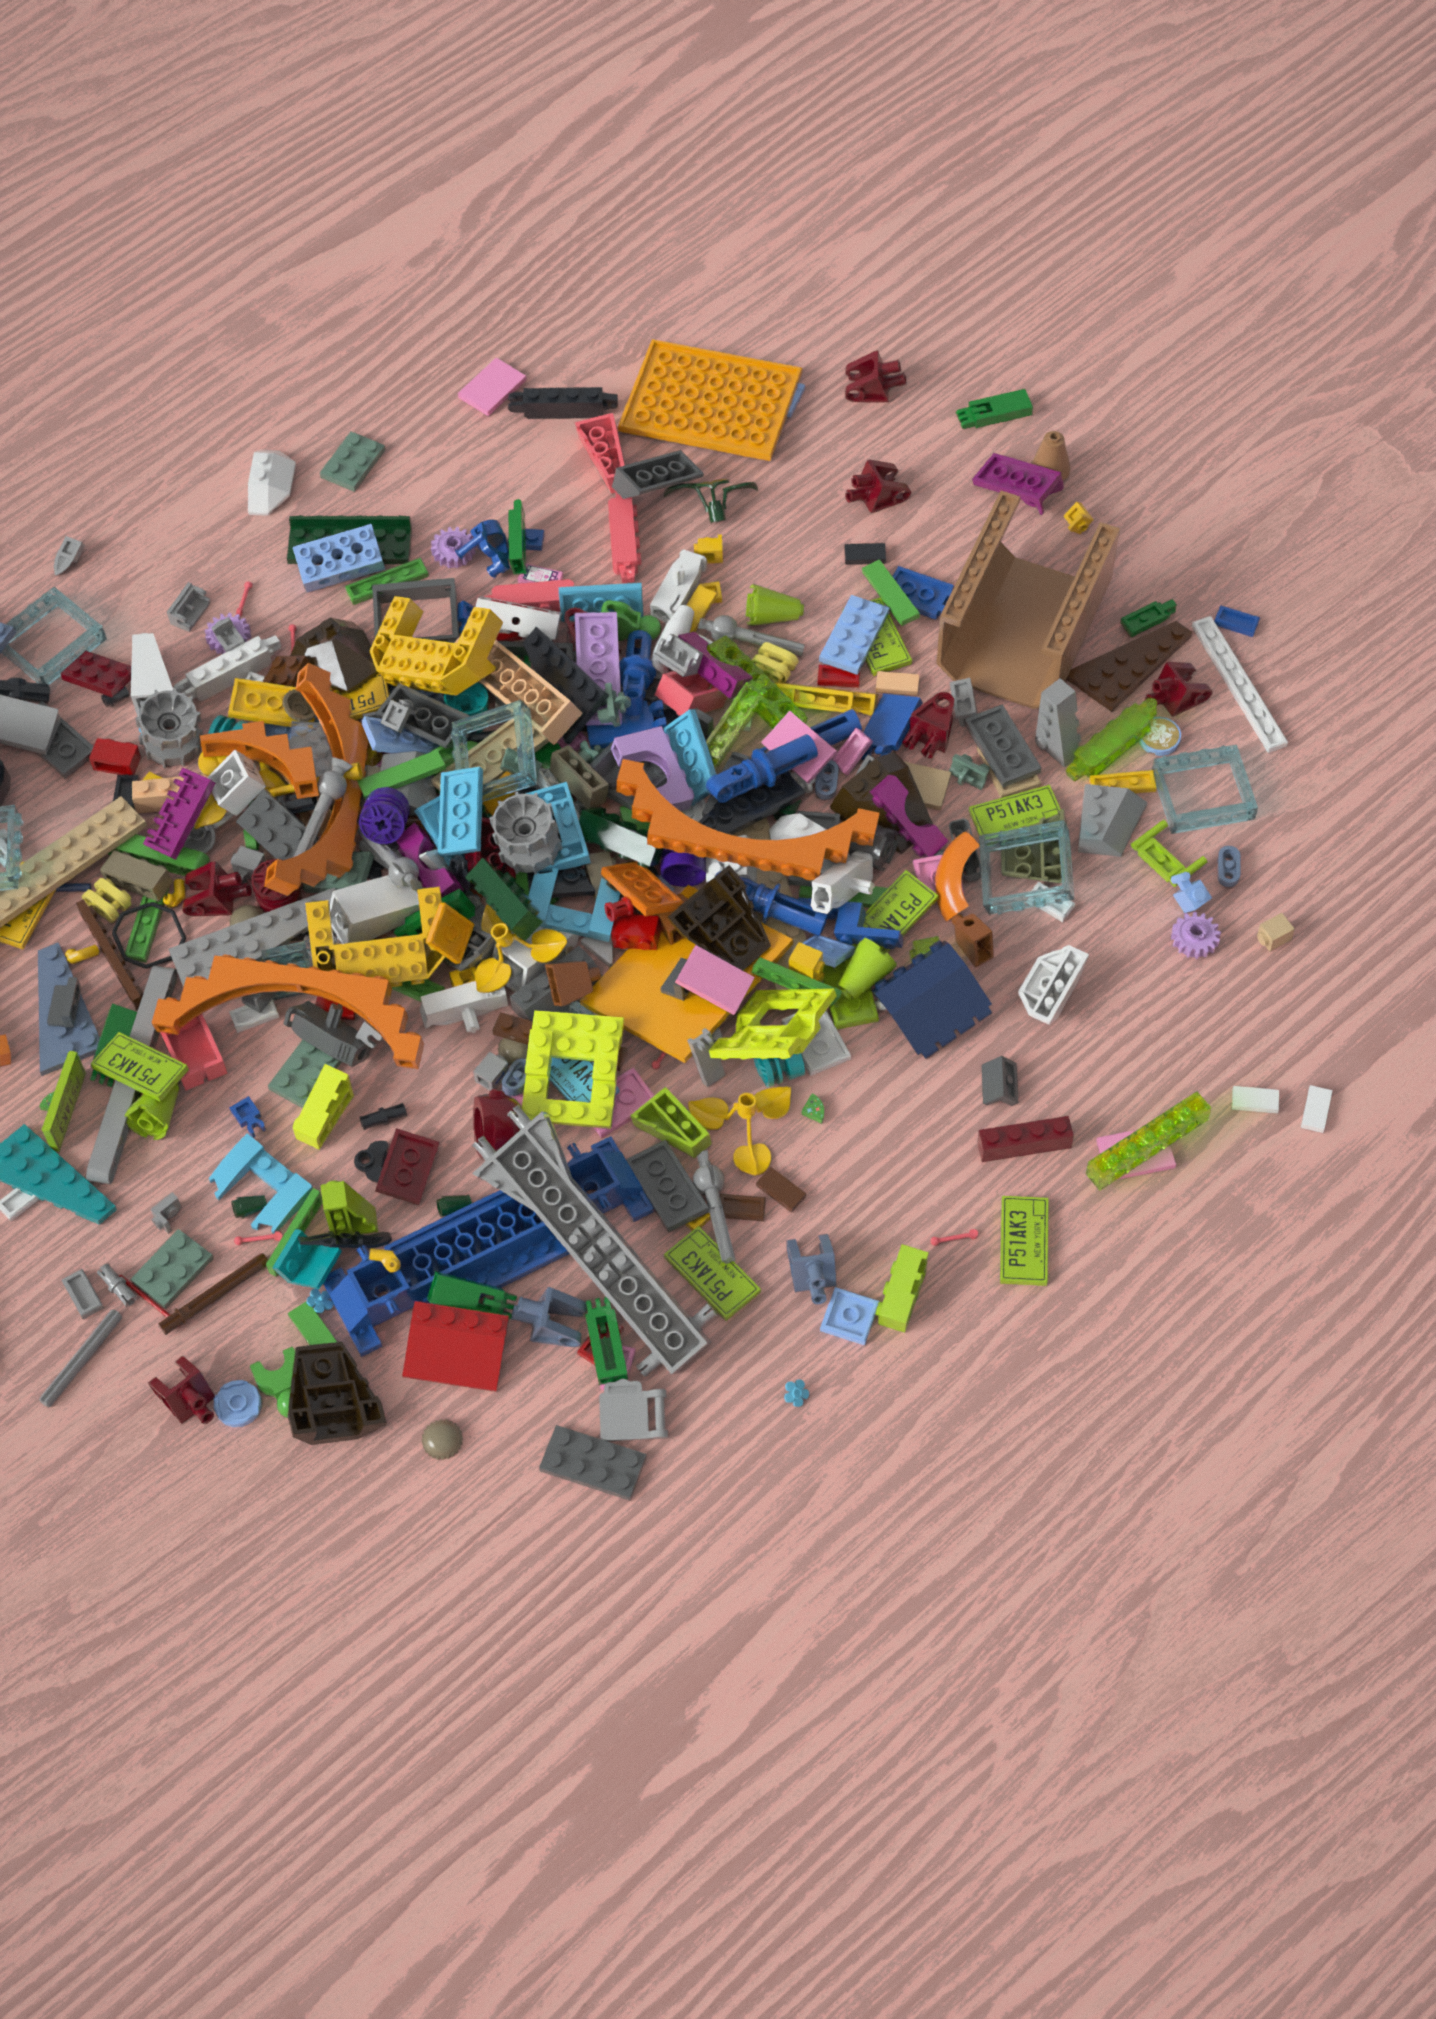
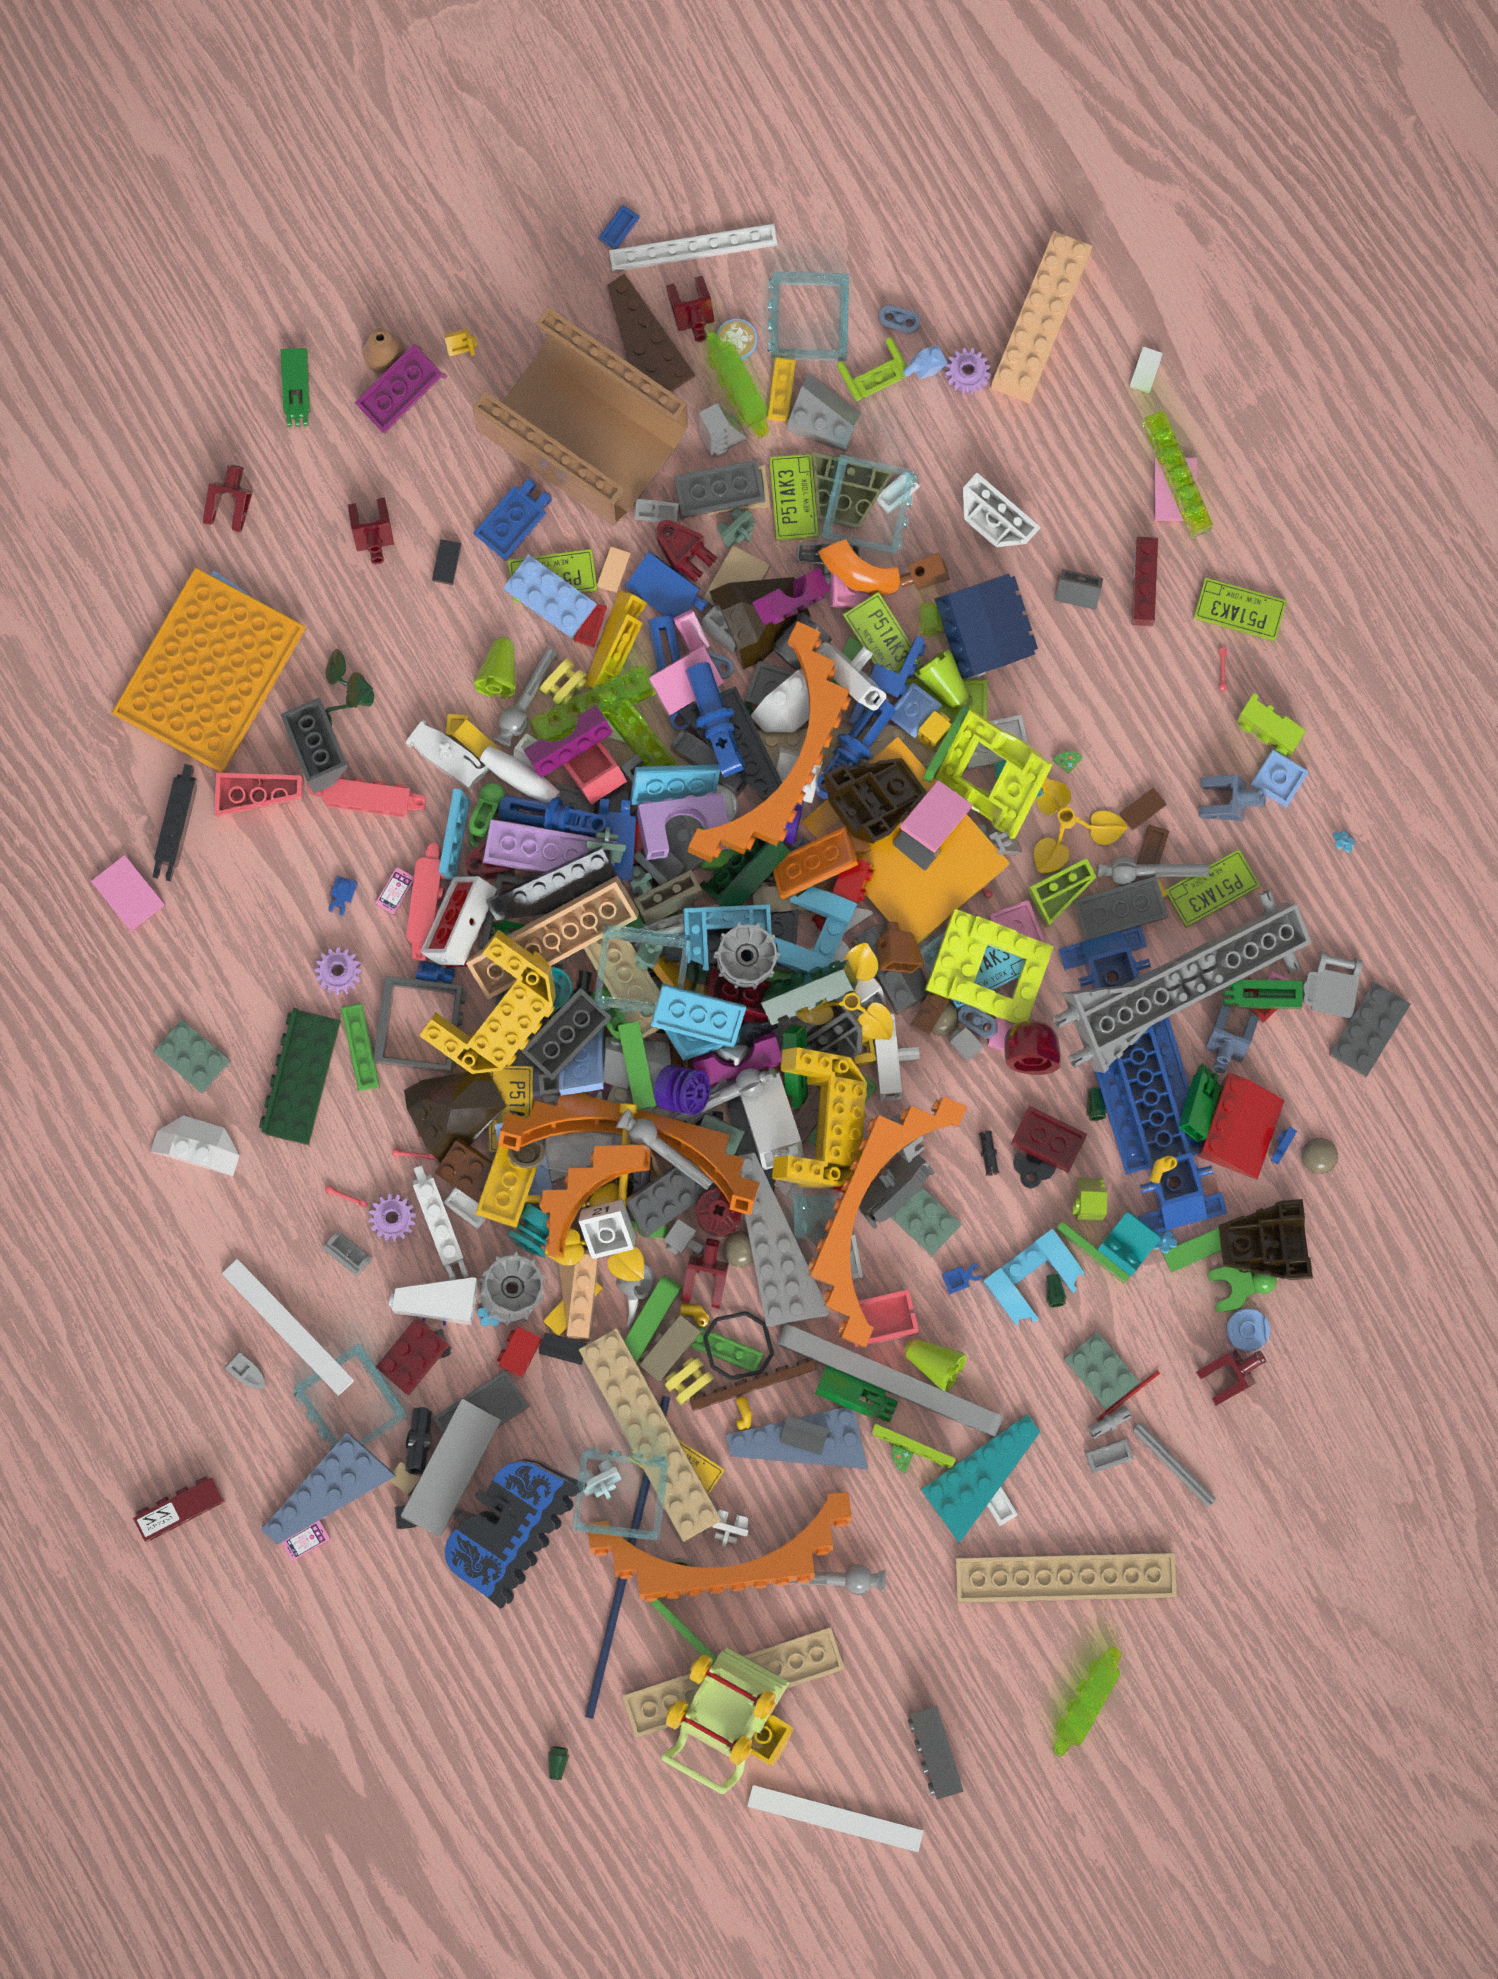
camera: 80 degrees left, 20 degrees up
(109, 573) = (288, 1327): none -> white tile
(139, 1066) = (898, 1368): lime tile -> none
(165, 1209) = (1043, 1364): light grey bracket -> none
(179, 813) = (627, 1289): magenta hinge -> none
(202, 1301) = (1137, 1335): reddish brown axle -> none
(227, 634) = (408, 1215): light grey bracket -> none
(277, 1236) = (1088, 1270): coral hinge -> none
(323, 1107) = (972, 1207): neon yellow wedge -> none
(339, 545) = (343, 1081): light blue brick -> none
(347, 1240) = (1116, 1195): black piece -> none
(397, 715) = (566, 1056): light grey bracket -> none
(449, 1396) = (1285, 1139): none -> blue plate
(450, 933) = (836, 1049): light orange tile -> none
(491, 540) = (342, 937): blue piece -> none
(517, 538) = (351, 902): green hinge -> none
(618, 908) = (835, 888): red bush -> none
(678, 655) = (558, 770): light grey hinge -> none
(710, 548) = (407, 714): yellow brick -> none
(890, 592) = (508, 549): bright green tile -> none
(1148, 617) = (596, 310): green hinge -> none
(1275, 932) = (981, 299): tan brick -> none
(1276, 988) = (1041, 317): none -> light nougat brick
(1316, 1109) = (1167, 320): white tile -> none

